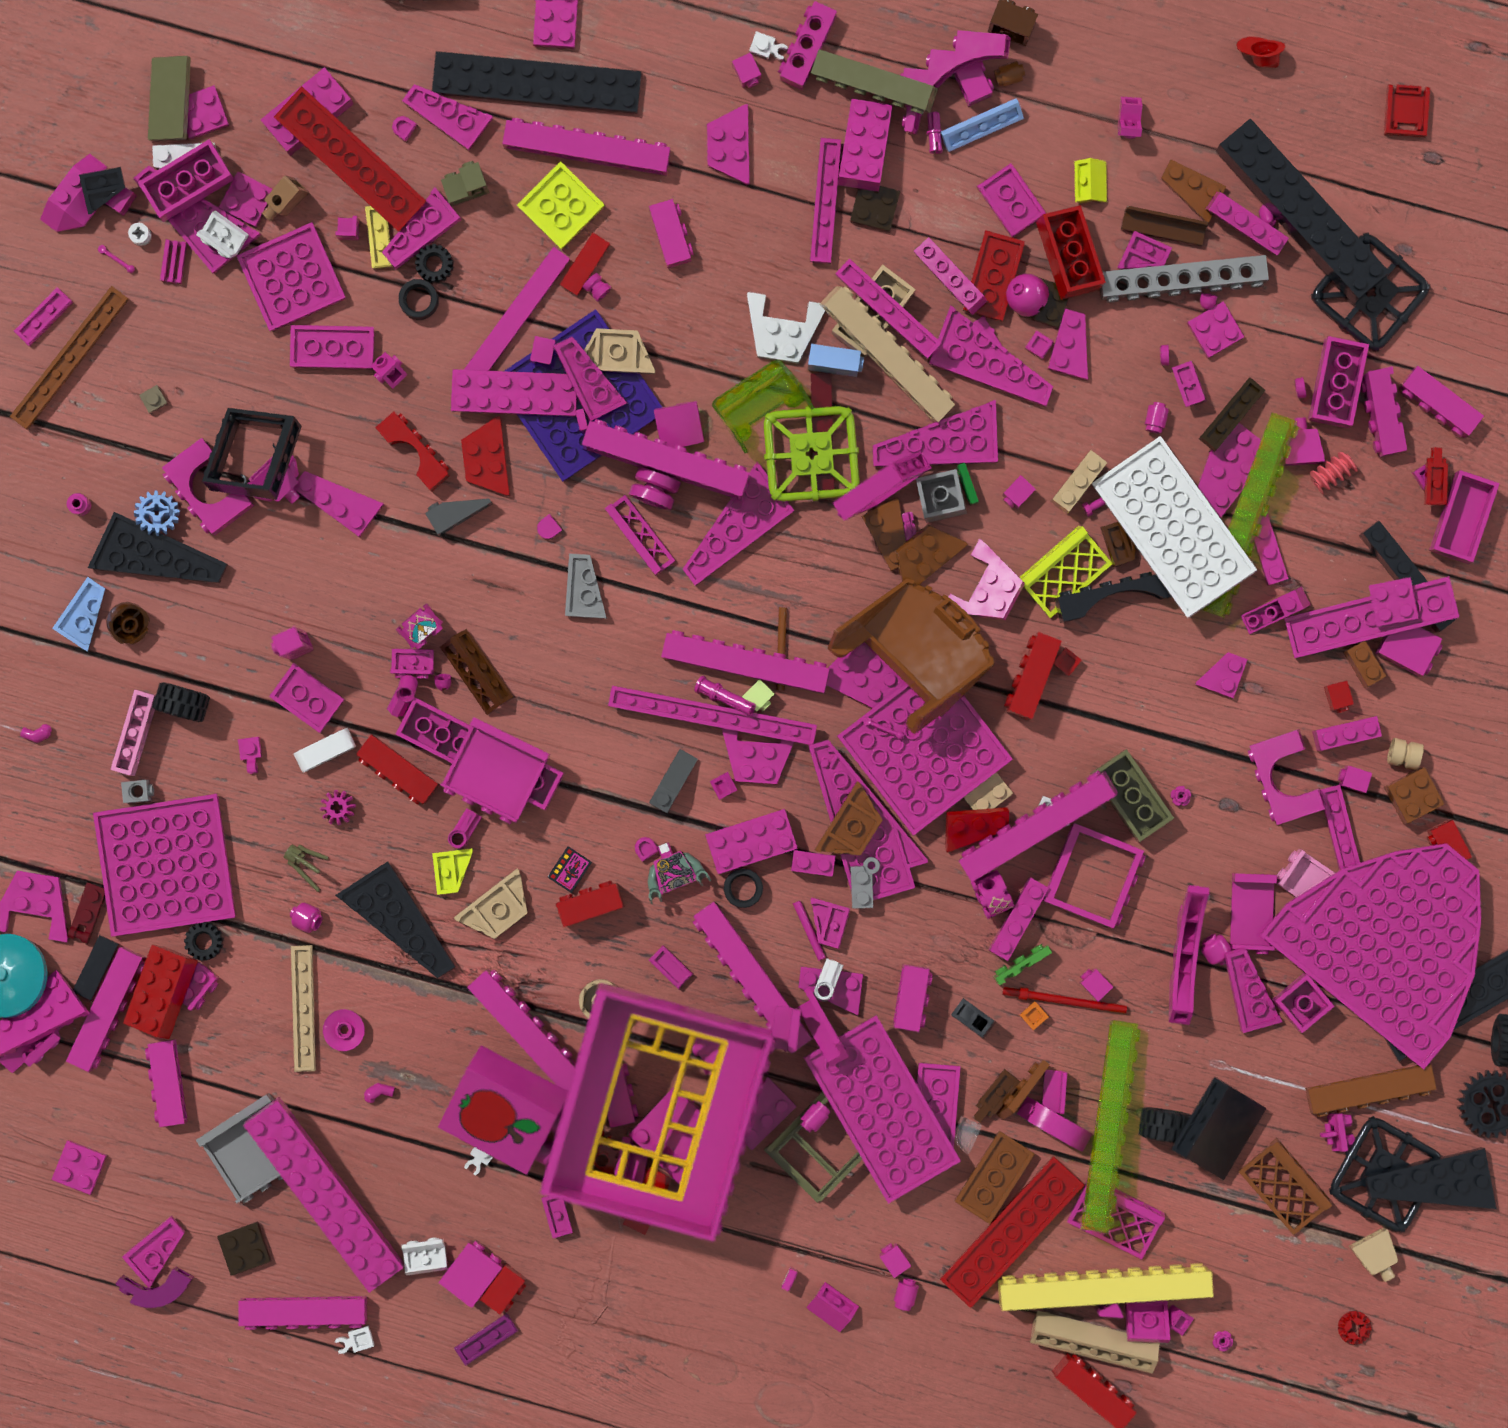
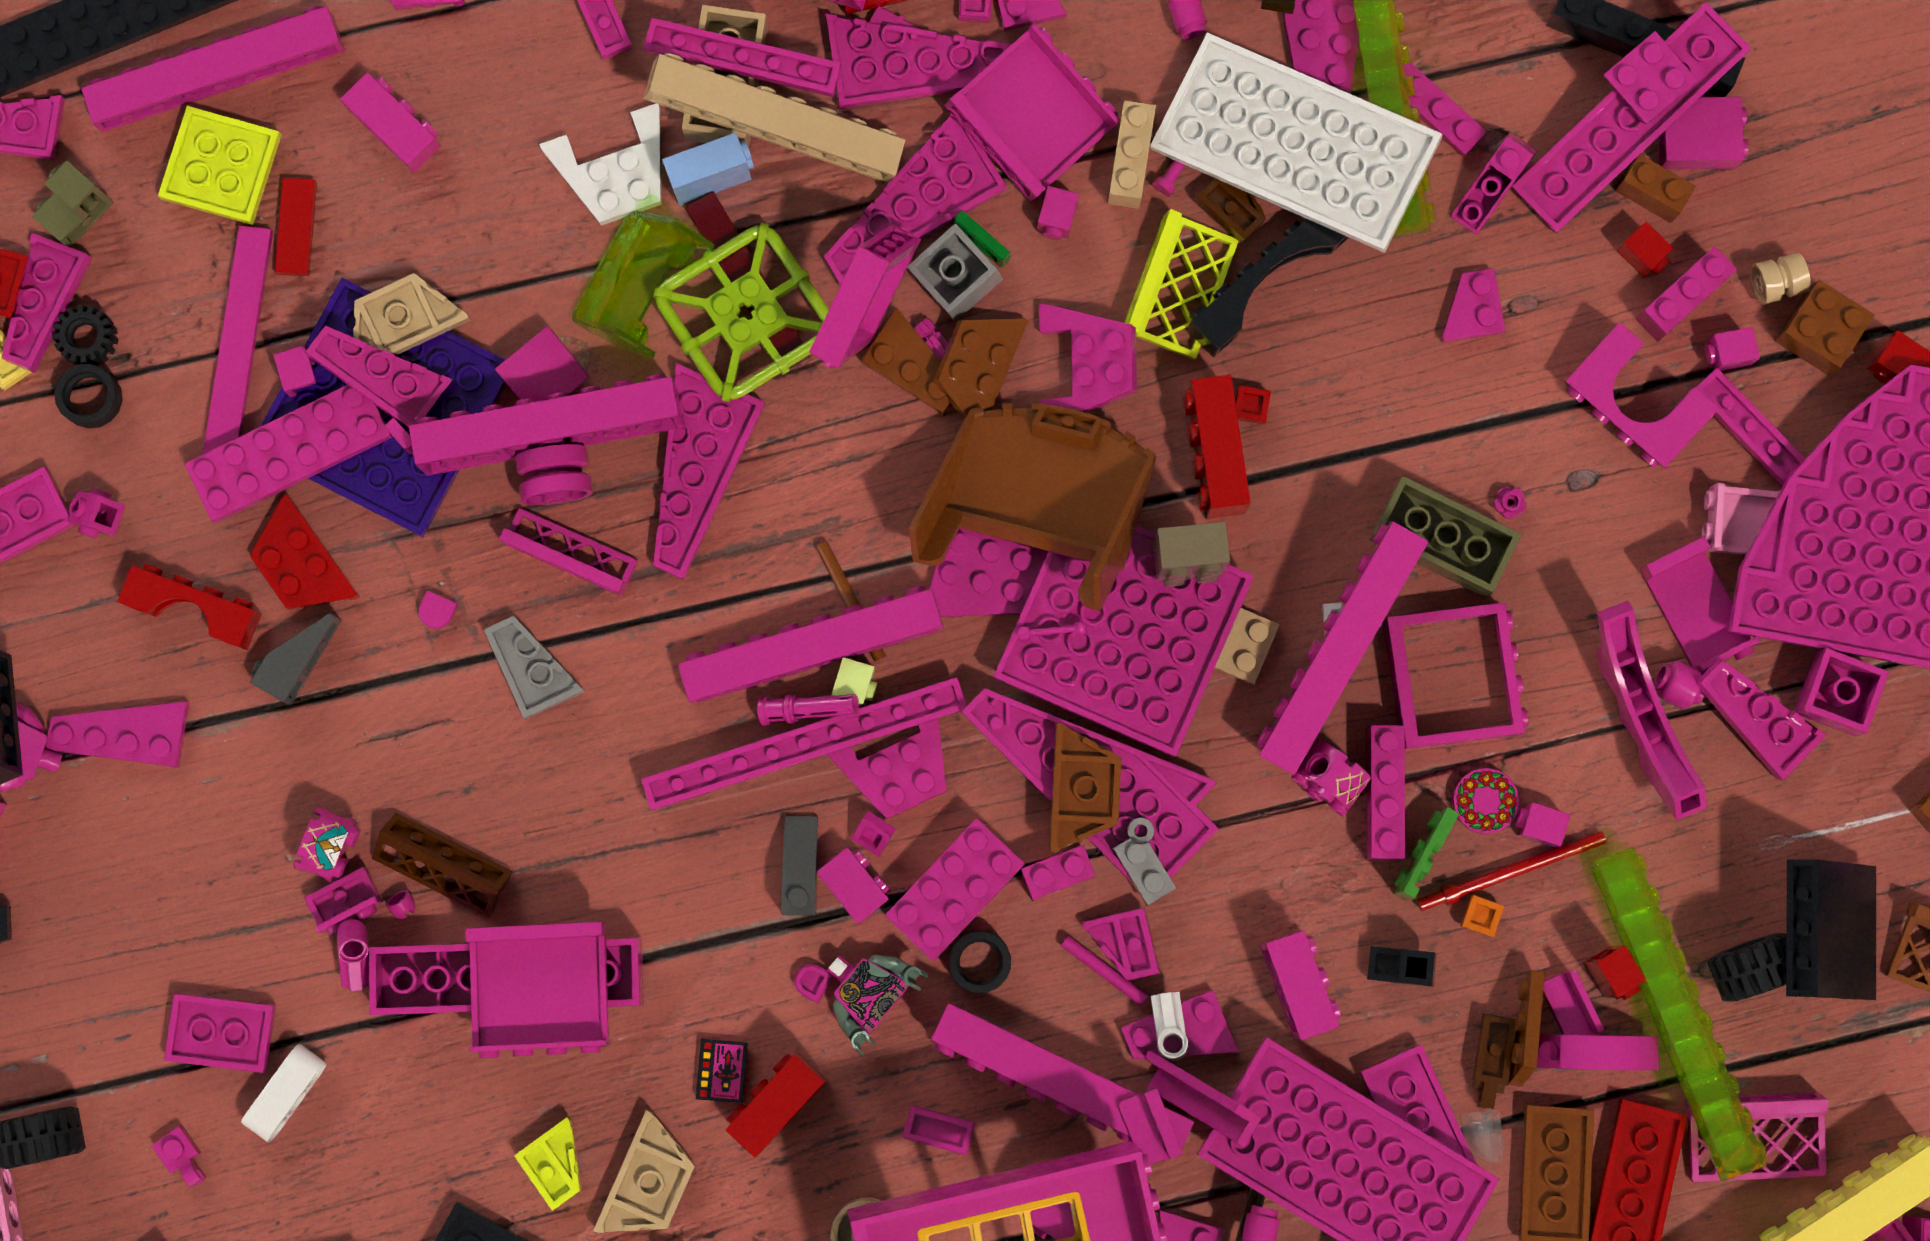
camera: 30 degrees left, 5 degrees down
(291, 643) = (151, 966): dark pink brick -> none
(341, 801) = (332, 1161): dark pink gear -> none
(397, 769) = (401, 1063): red brick -> none
(465, 827) = (541, 1091): dark pink piece -> none
(597, 287) = (327, 247): dark pink wheel -> none
(696, 808) = (853, 885): none -> dark pink brick
(973, 825) = (1250, 698): red wing -> none
(982, 729) = (1190, 553): none -> dark tan brick
(1036, 427) = (1033, 112): none -> dark pink panel
(1072, 953) = (1485, 801): none -> tile
(1088, 1086) = (1615, 972): none -> red brick

